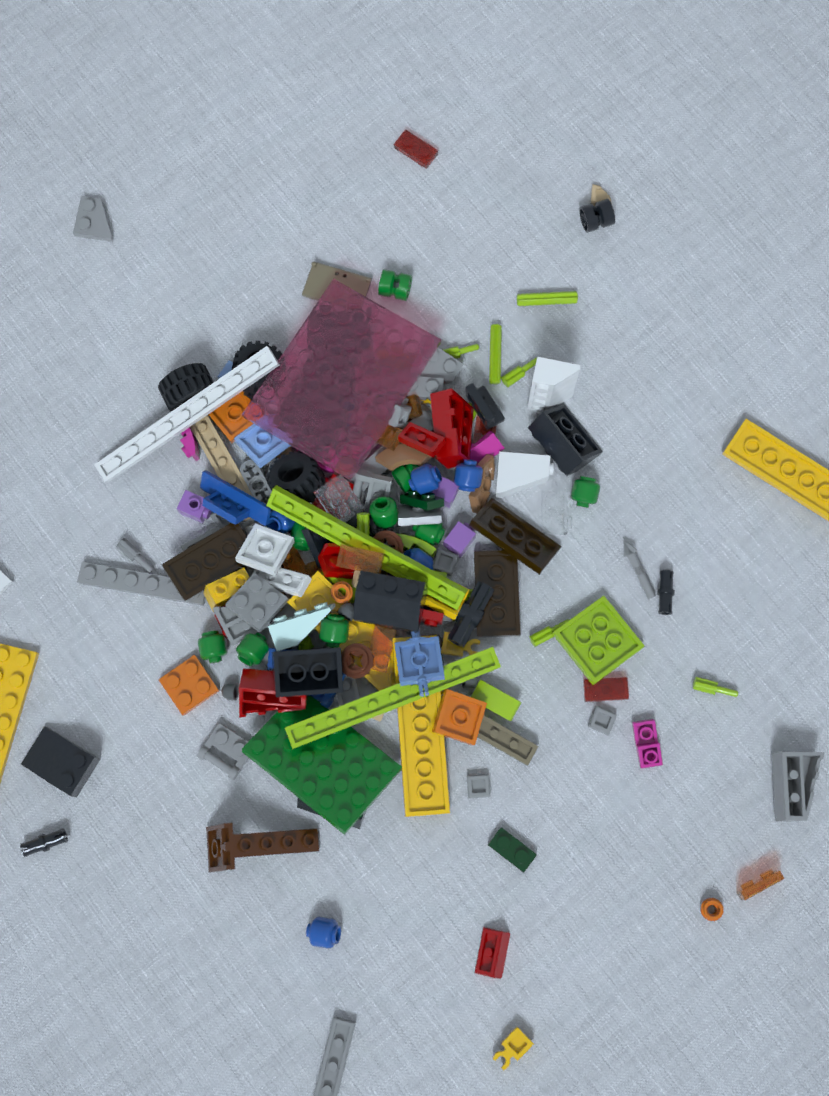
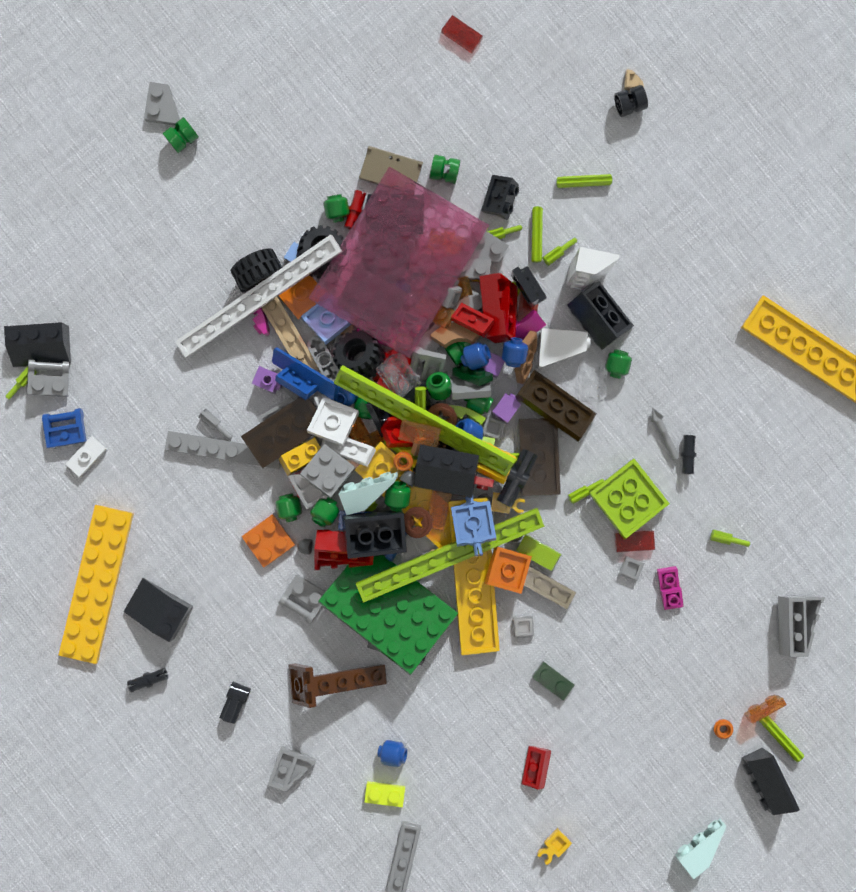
camera: 10 degrees left, 10 degrees up
(111, 249) = (180, 135): none -> green wheel
(145, 863) = (235, 700): none -> black piece
(202, 949) = (289, 768): none -> light grey wing
(276, 324) = (336, 208): none -> green head
(299, 319) = (355, 208): none -> red pin
(313, 982) = (384, 794): none -> neon yellow plate
(455, 313) = (500, 196): none -> black bracket
(685, 1059) = (699, 853): none -> light aqua slope
(767, 972) = (769, 782): none -> black slope
(780, 921) = (782, 738): none -> lime axle

